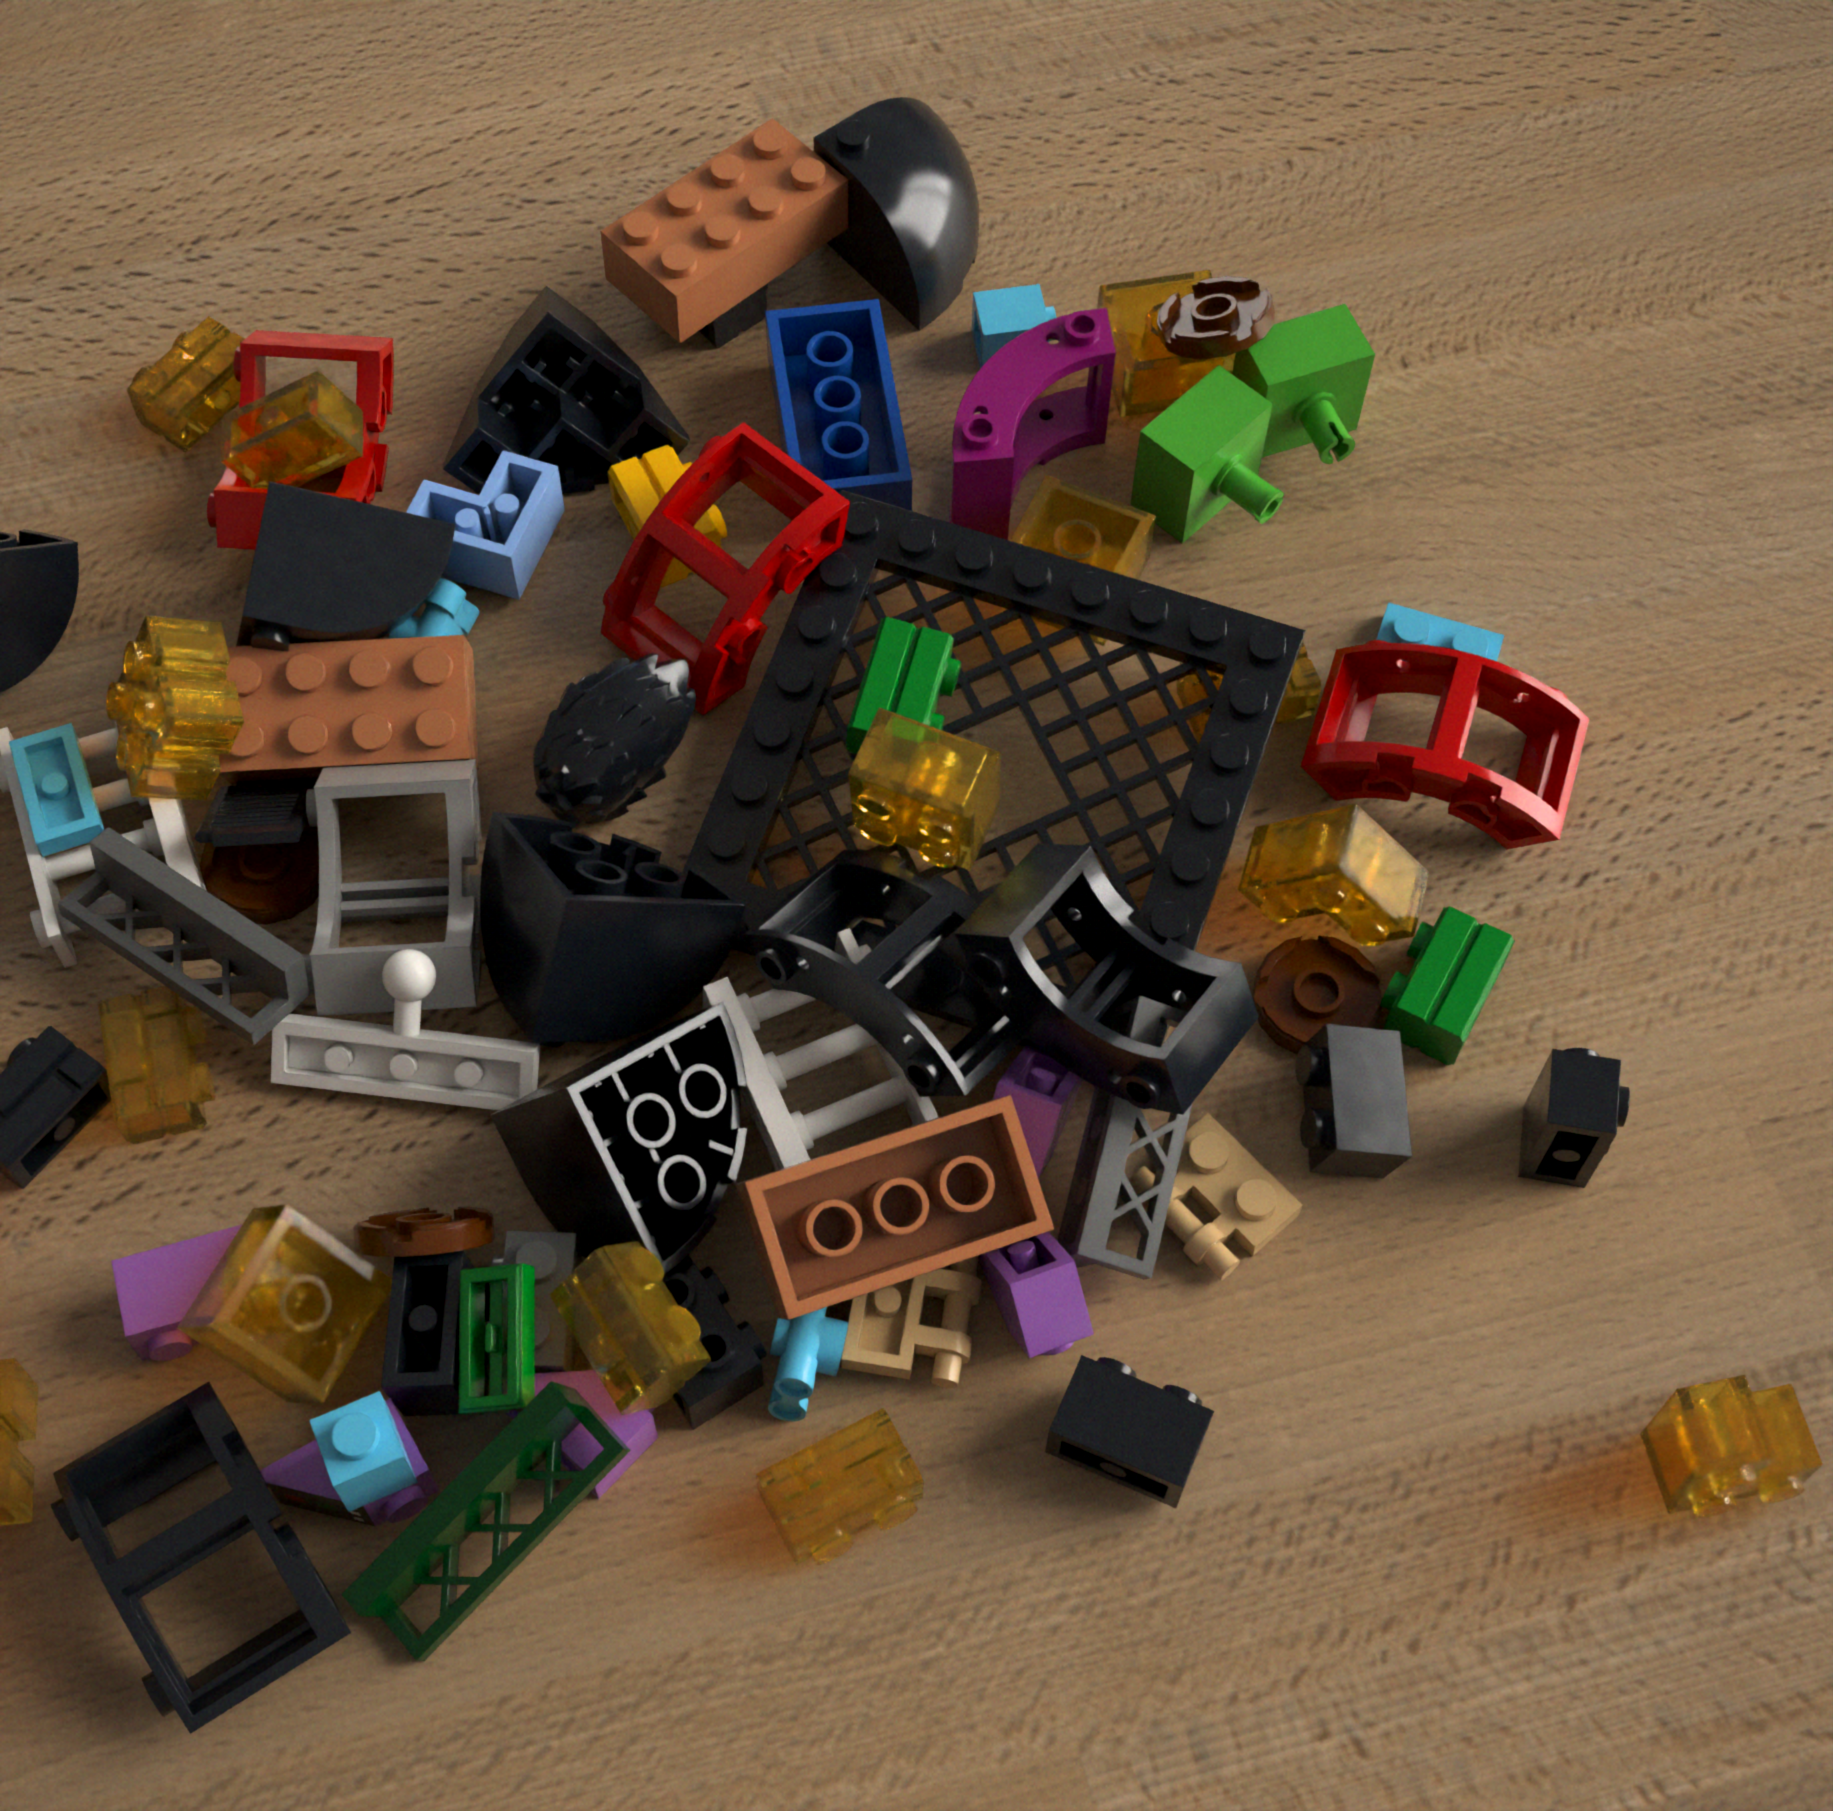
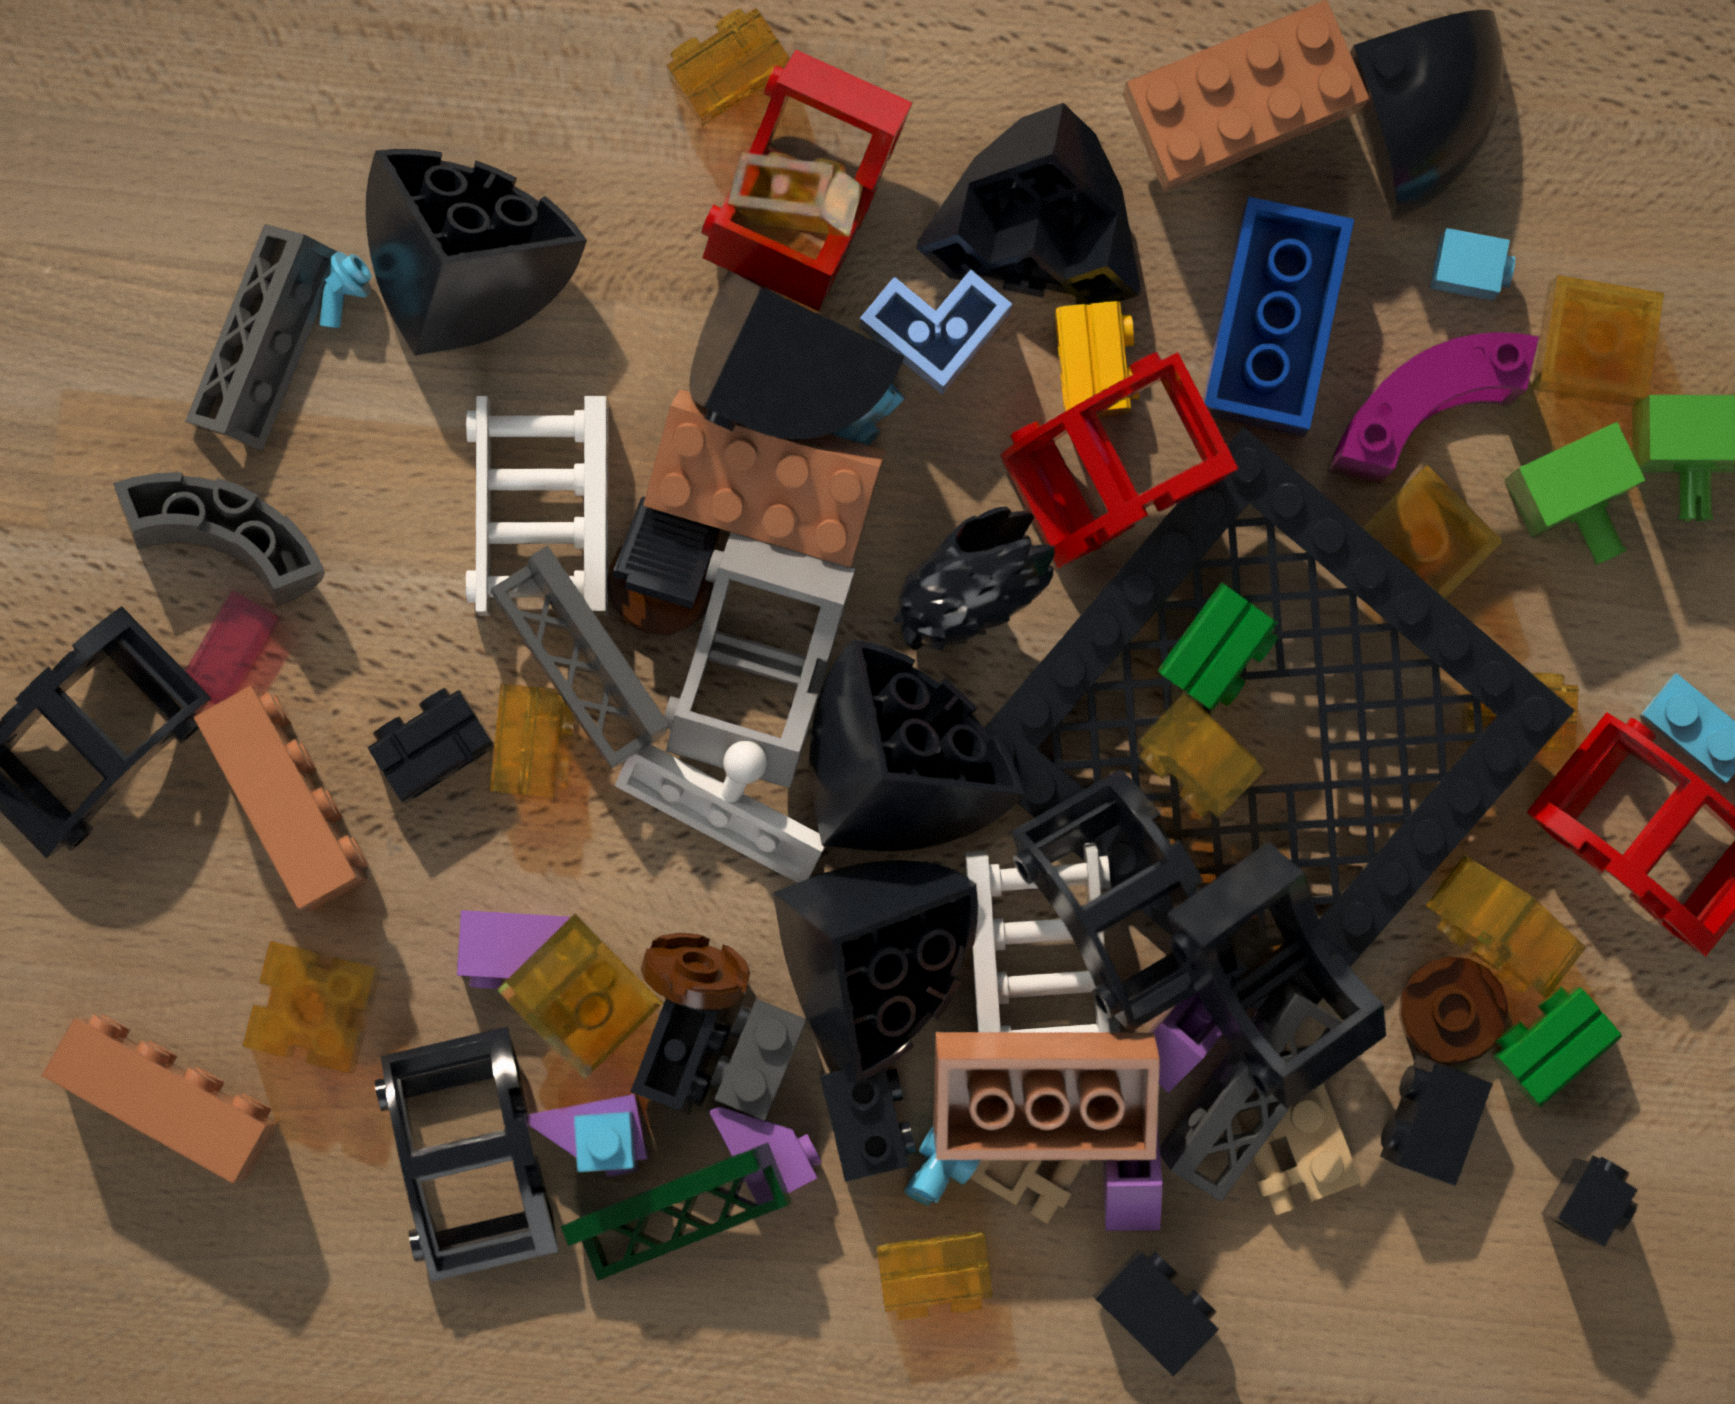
camera: 20 degrees right, 25 degrees up
(56, 789) = (514, 475): medium azure plate -> none
(174, 708) = (627, 457): clear yellow brick -> none
(507, 1339) = (741, 1093): green tile -> none
(631, 1326) = (822, 1116): clear yellow brick -> none
(1216, 318) = (1637, 368): reddish brown tile -> none

